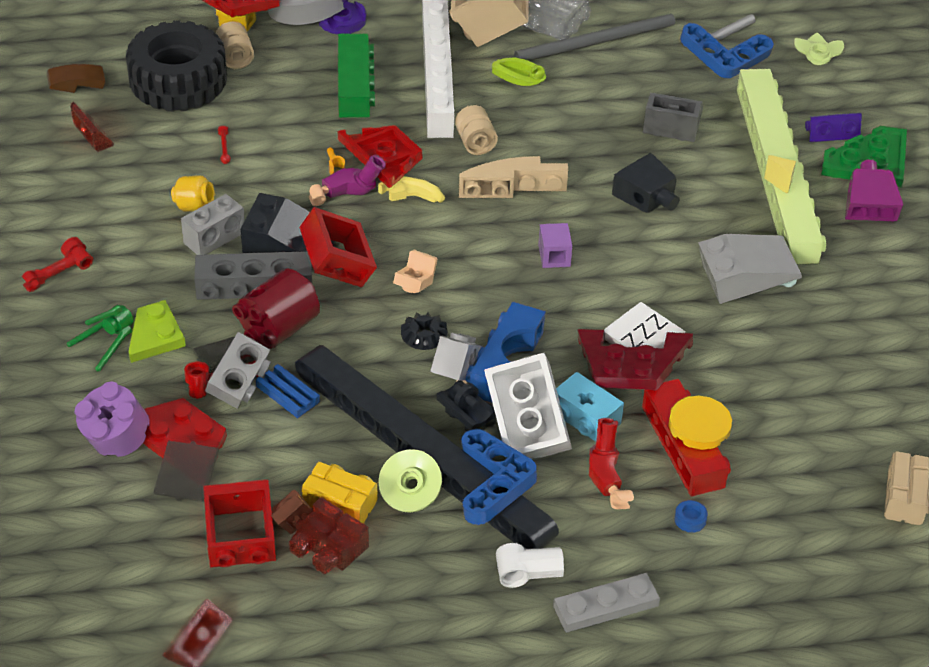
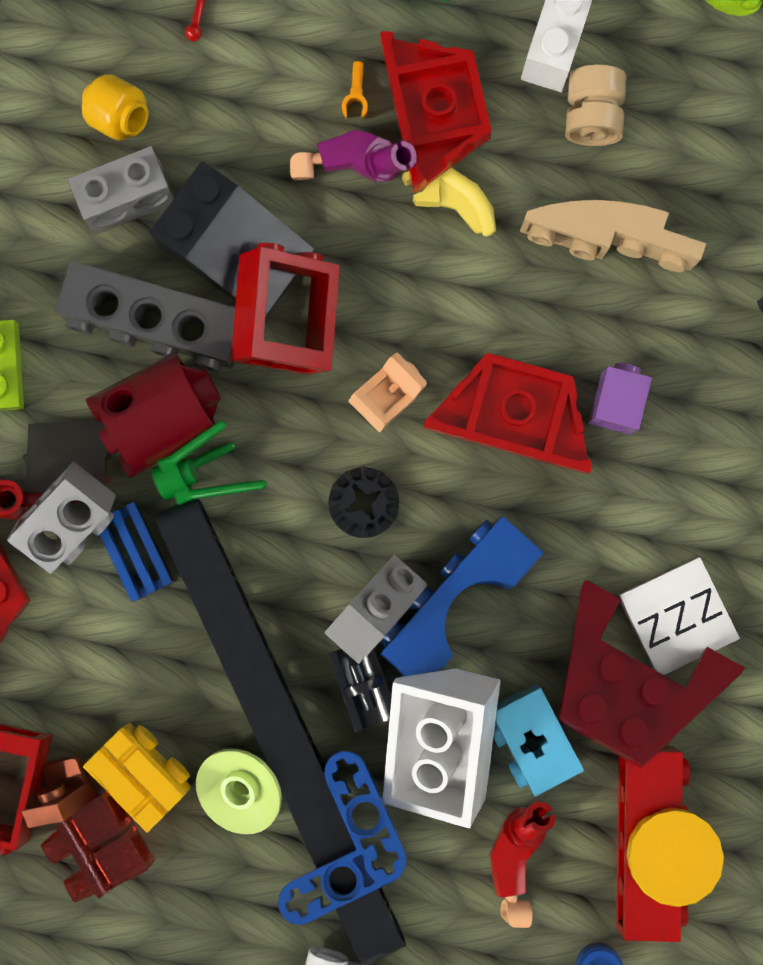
camera: 25 degrees right, 40 degrees up
(305, 338) = (176, 476): none -> green plant
(497, 266) = (517, 412): none -> red wing

